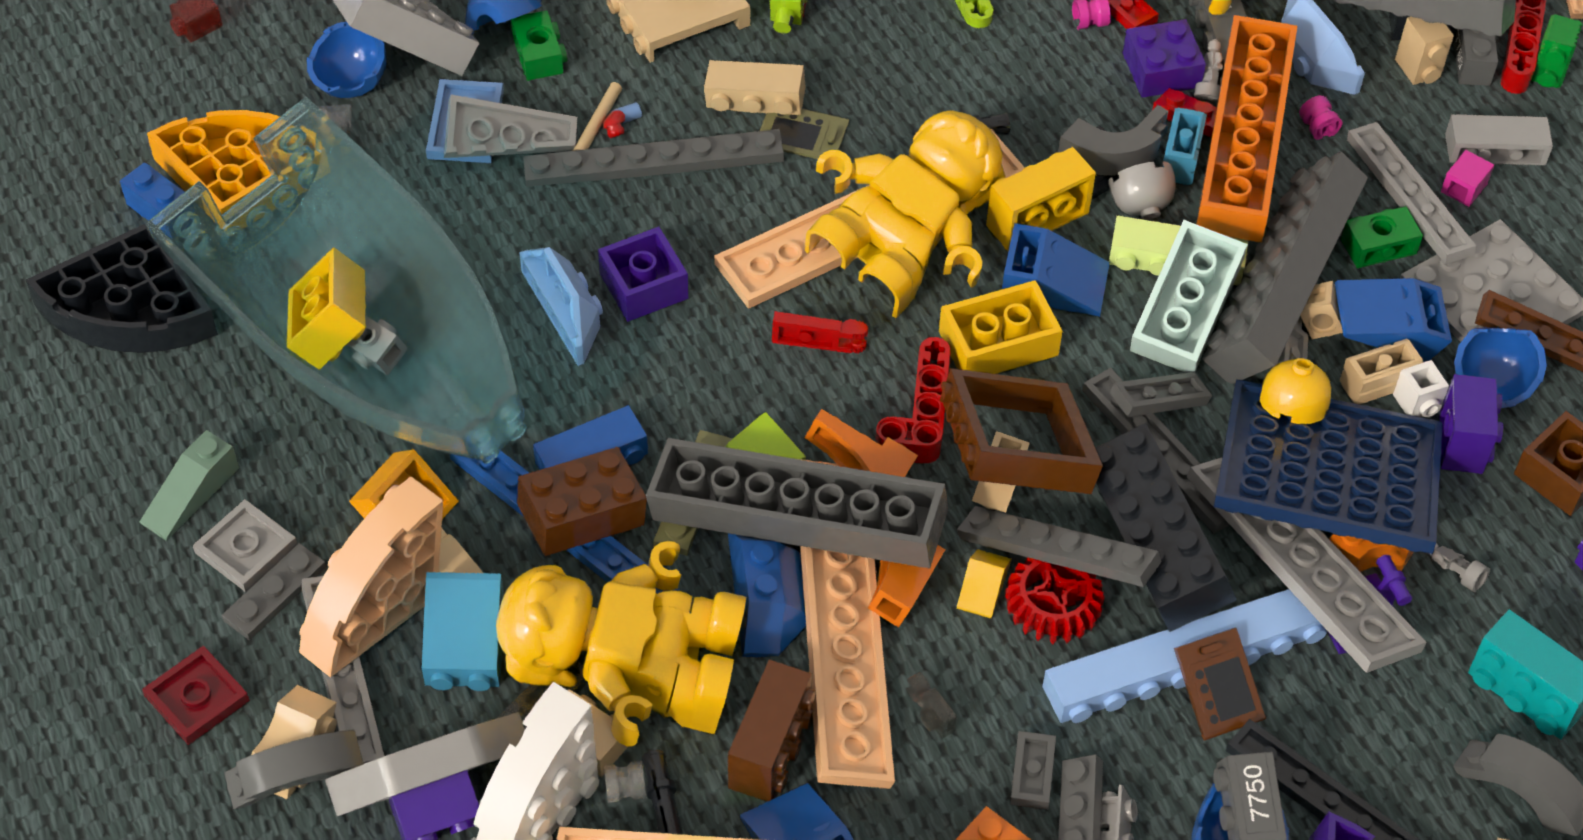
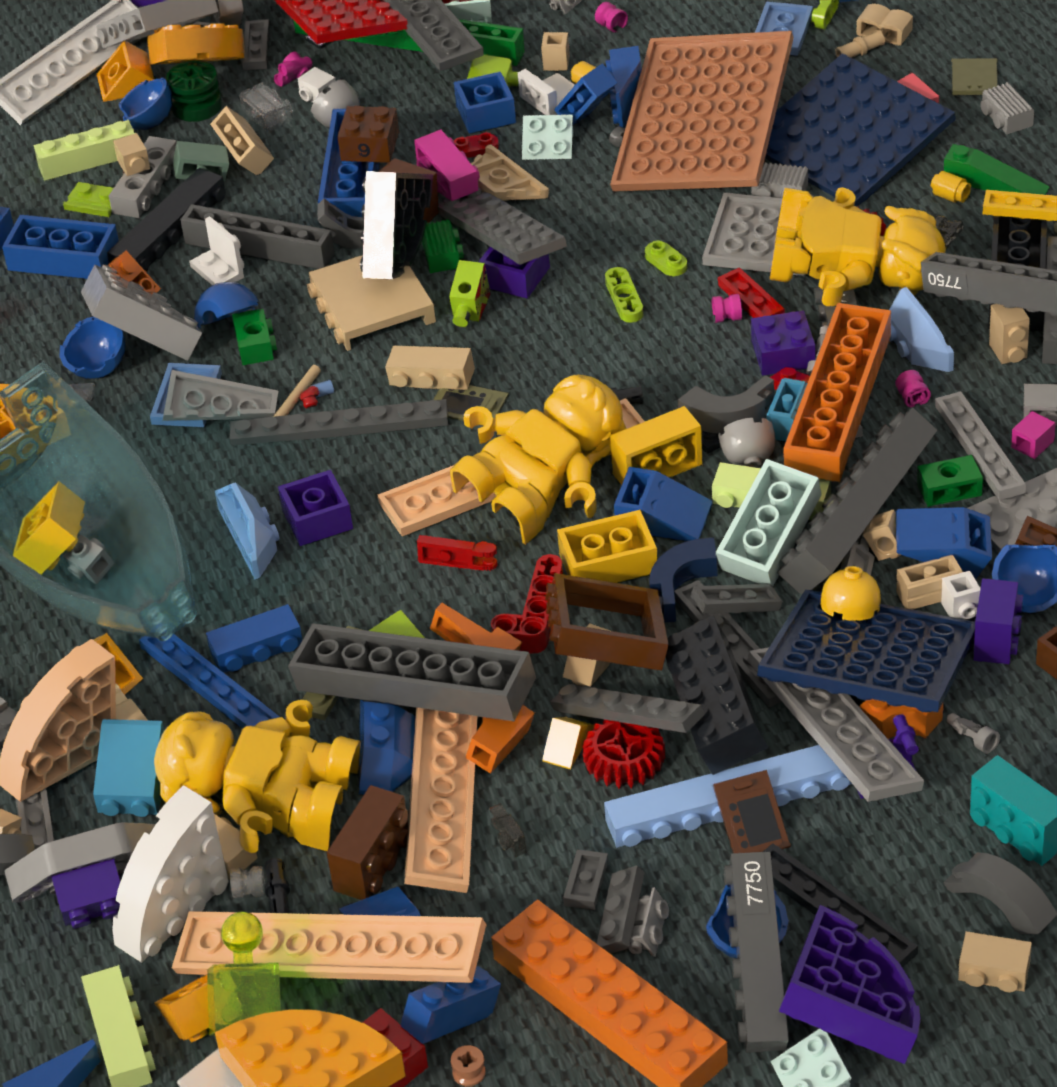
camera: 10 degrees right, 10 degrees down
(581, 501) = (238, 673): reddish brown brick -> none
(1087, 346) = (679, 564): none -> dark blue arch

